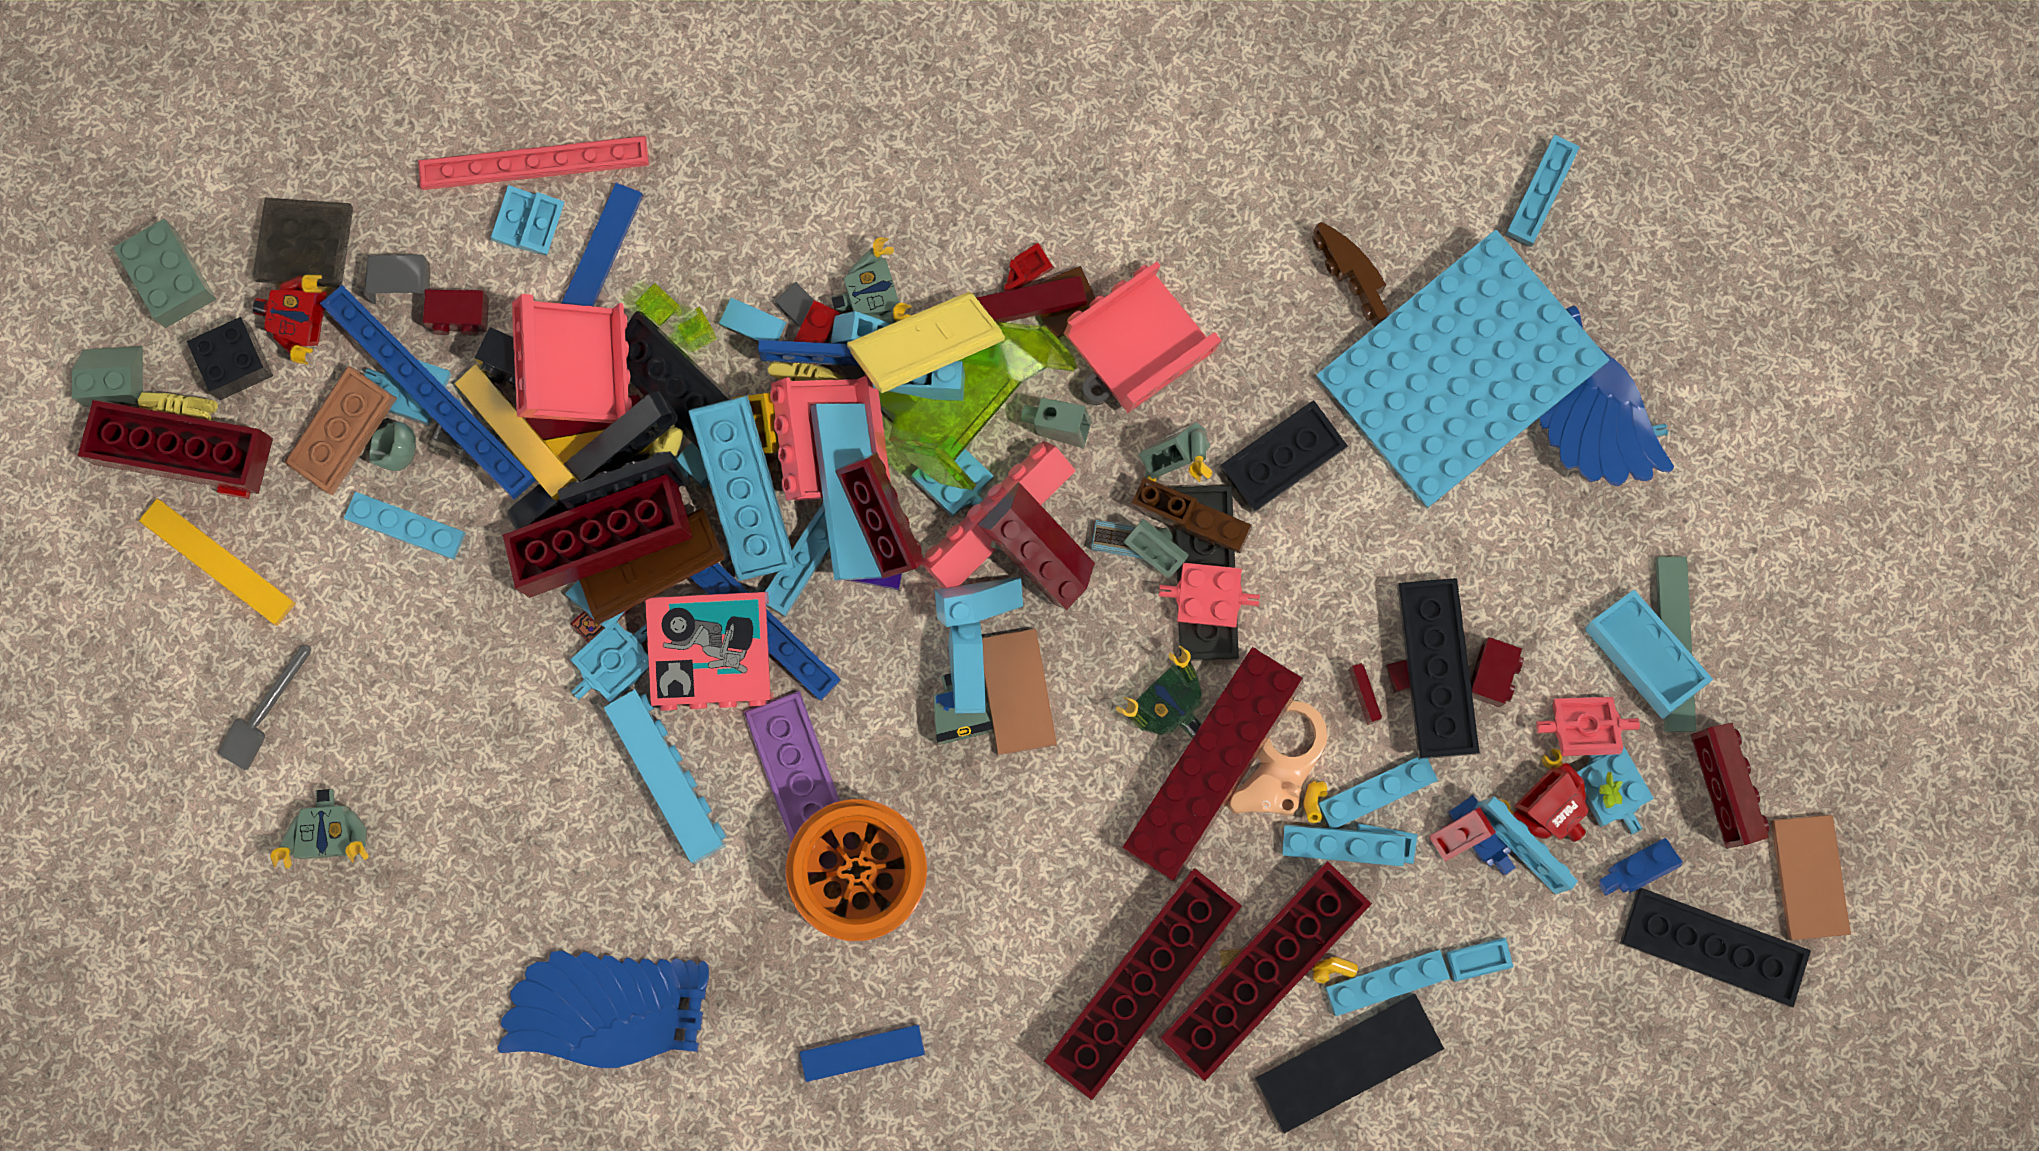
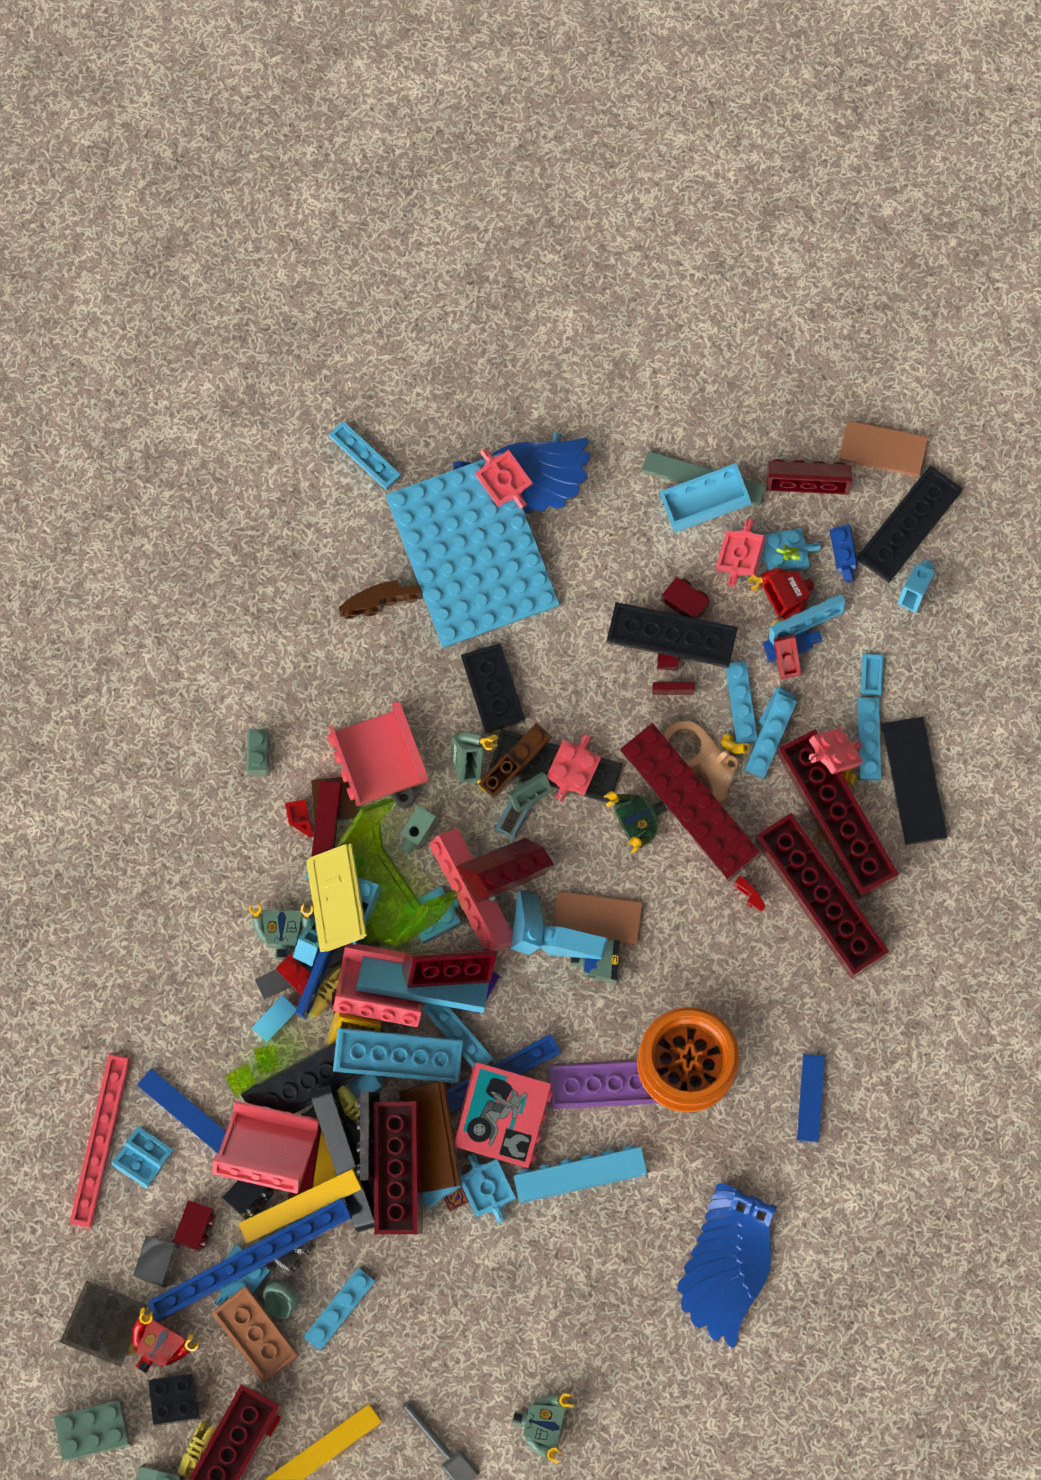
camera: 65 degrees left, 5 degrees down
(1093, 186) = (258, 752): none -> sand green brick
(1107, 894) = (746, 888): none -> red slope
(1349, 940) = (835, 750): none -> coral plate
(1573, 372) = (503, 478): none -> coral plate
(1628, 984) = (917, 586): none -> medium azure torso

